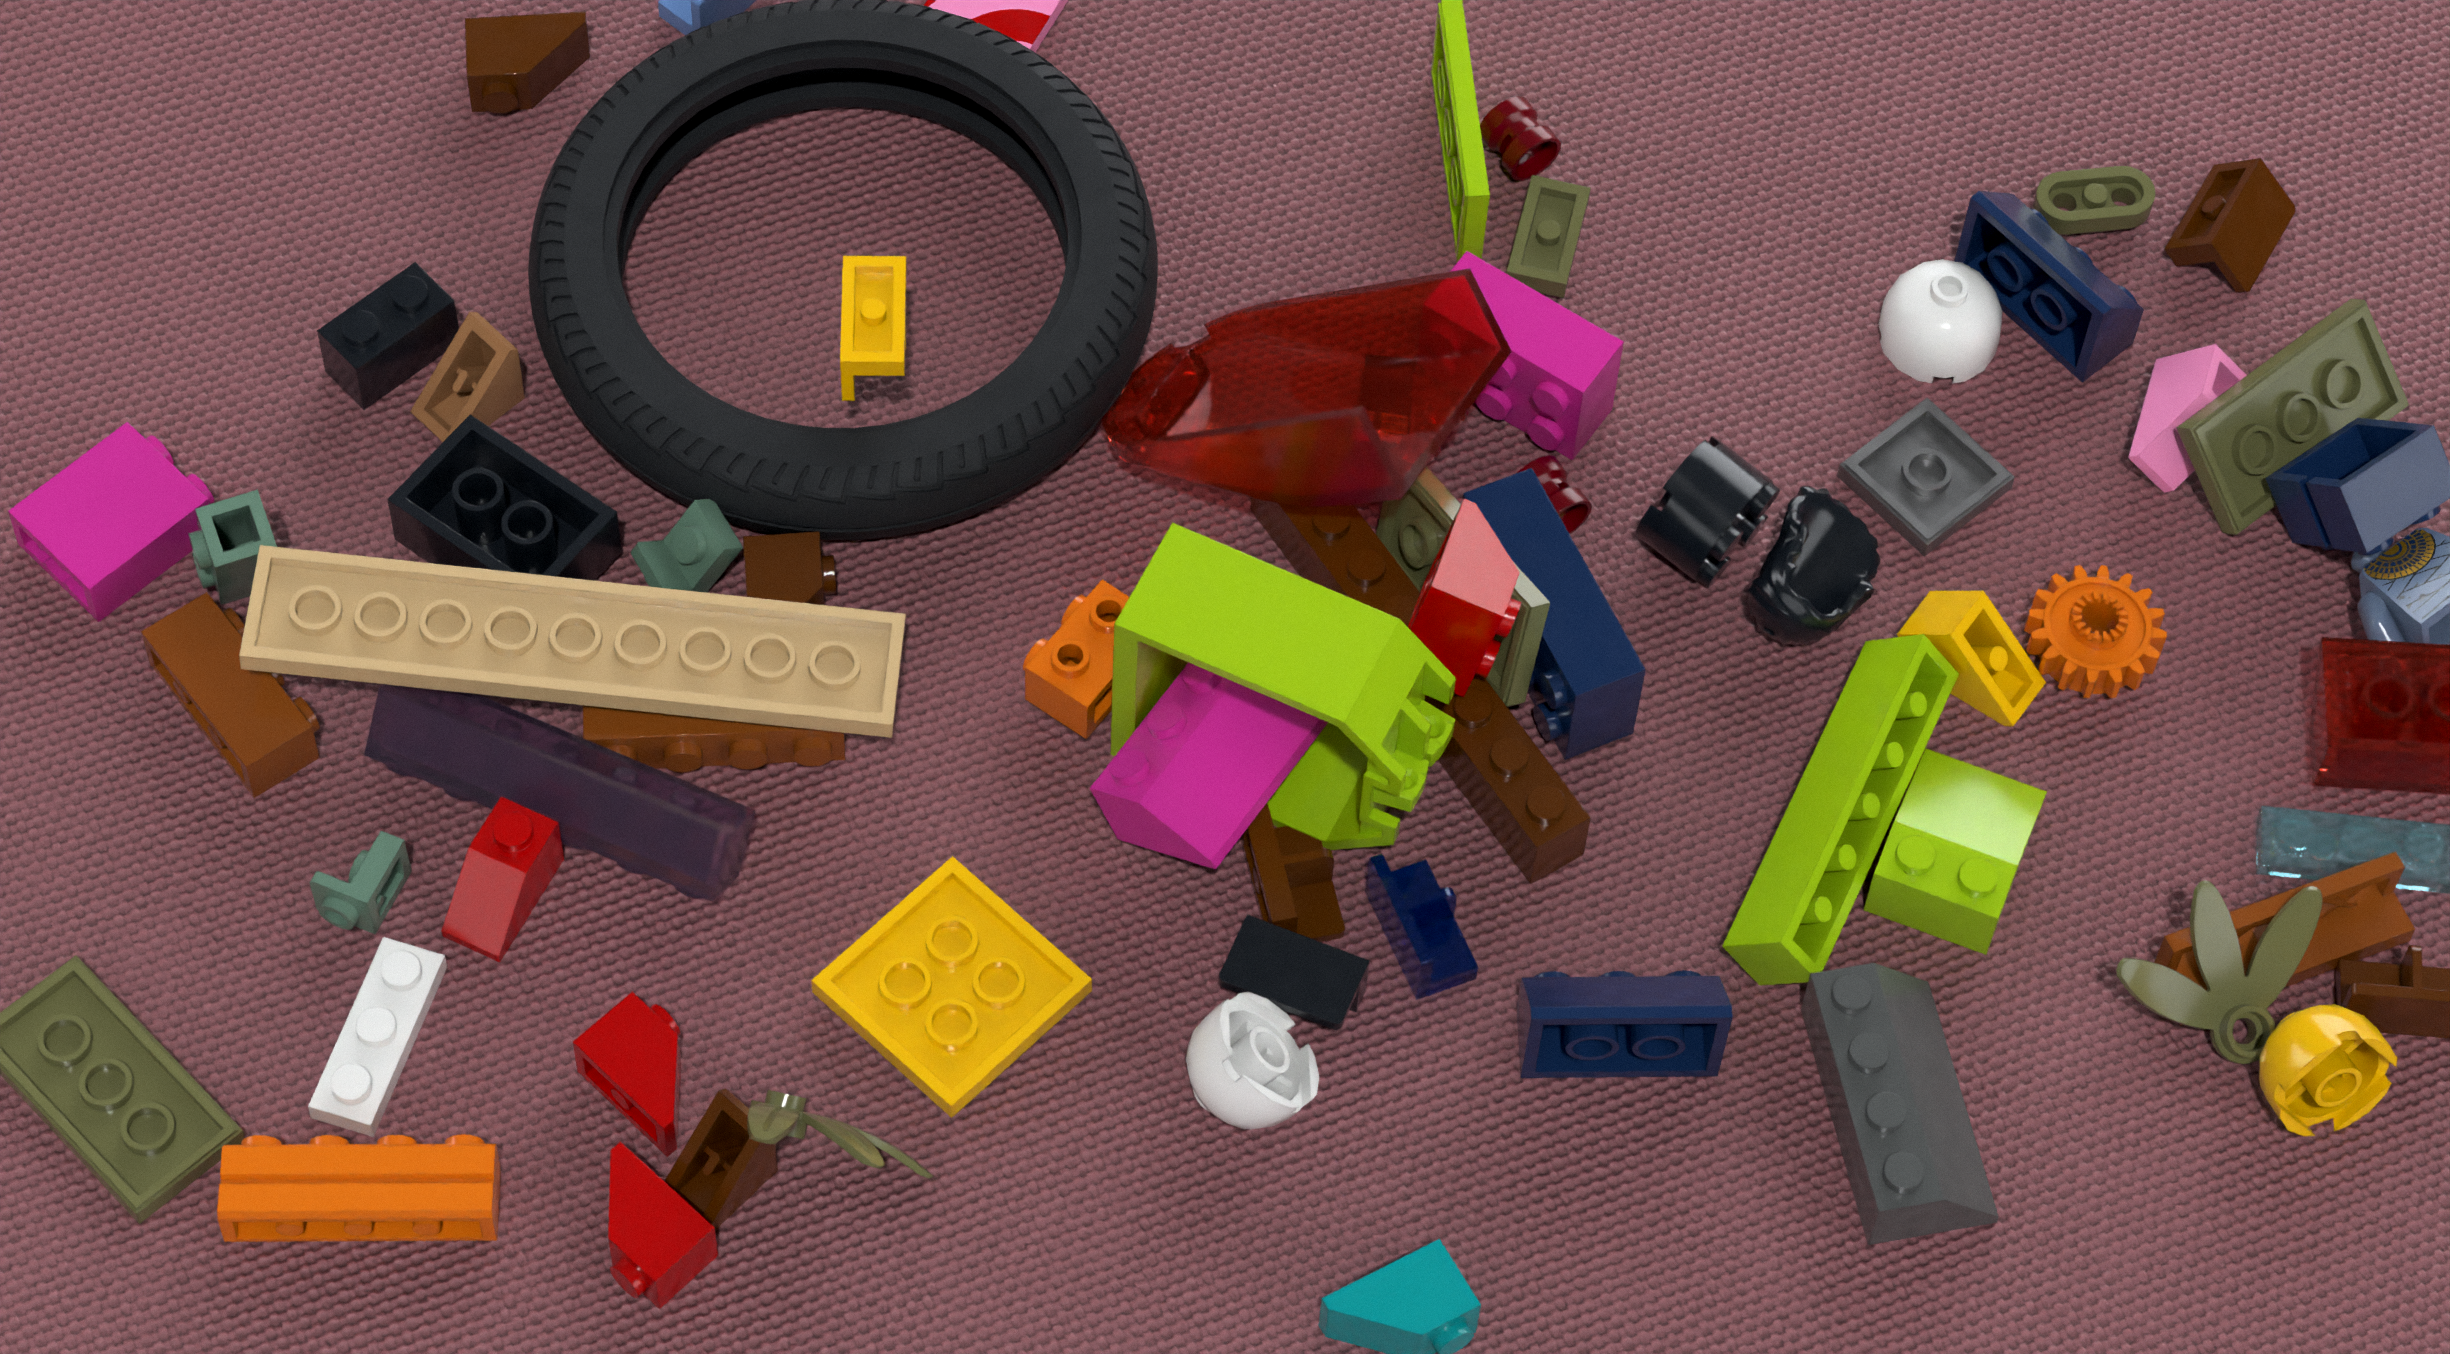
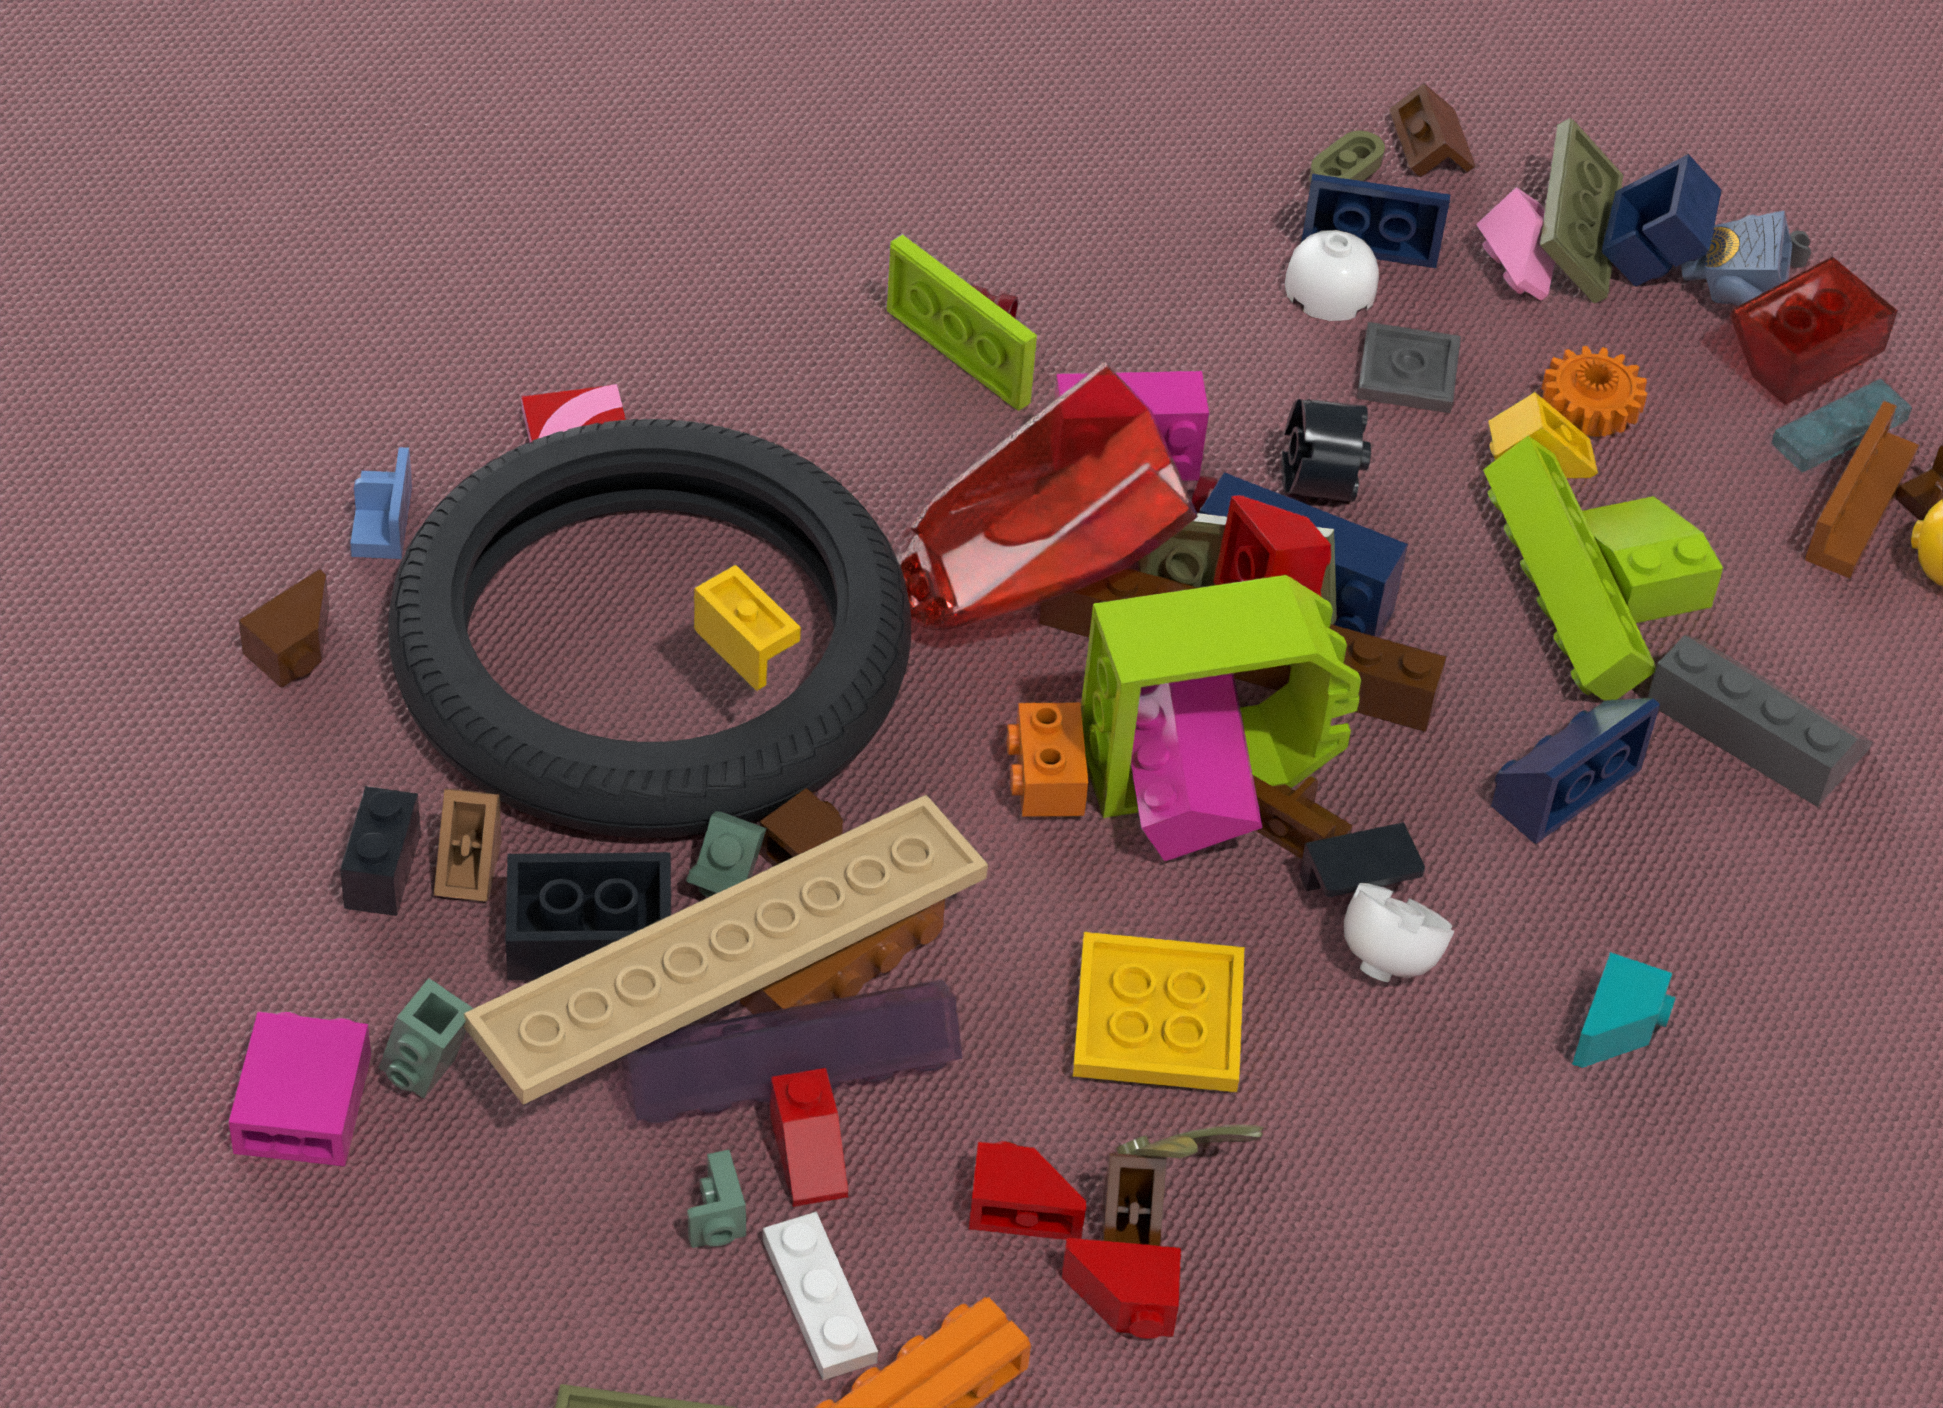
camera: 40 degrees left, 10 degrees down
(237, 709) = (500, 1144): dark orange brick -> none
(1420, 926) = (1395, 793): clear blue panel -> none
(1548, 235) = (1059, 350): olive plate -> none
(1814, 570) = (1415, 455): black piece -> none
(2219, 959) = (1874, 530): olive plant -> none

